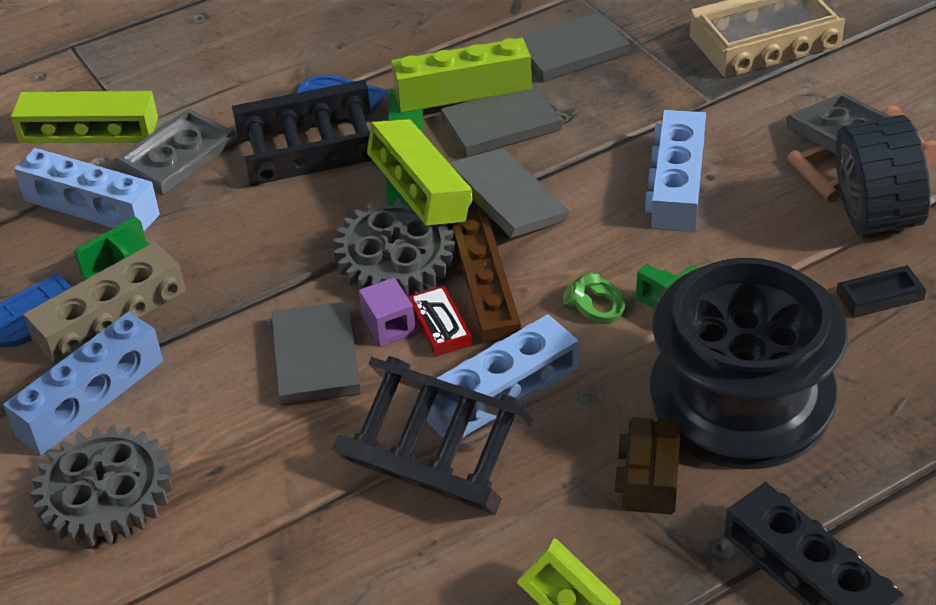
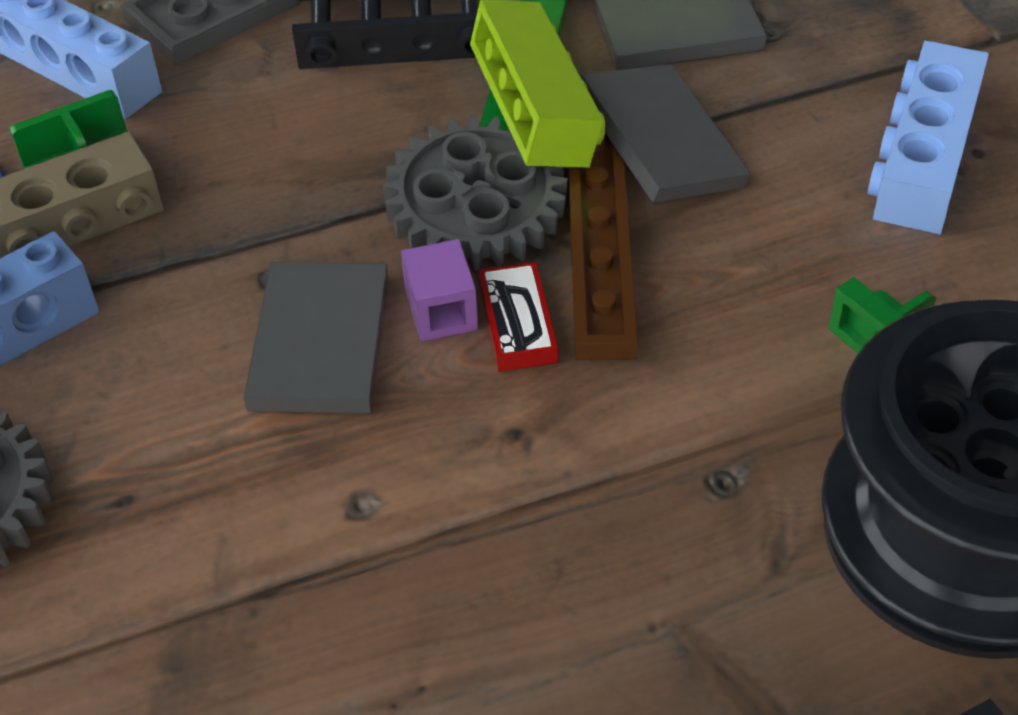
camera: 10 degrees right, 5 degrees up
(438, 475) = (449, 576): black fence -> none
(512, 367) = (584, 427): light blue brick -> none
(575, 296) = (734, 311): bright green piece -> none
(650, 465) = (799, 625): dark brown brick -> none

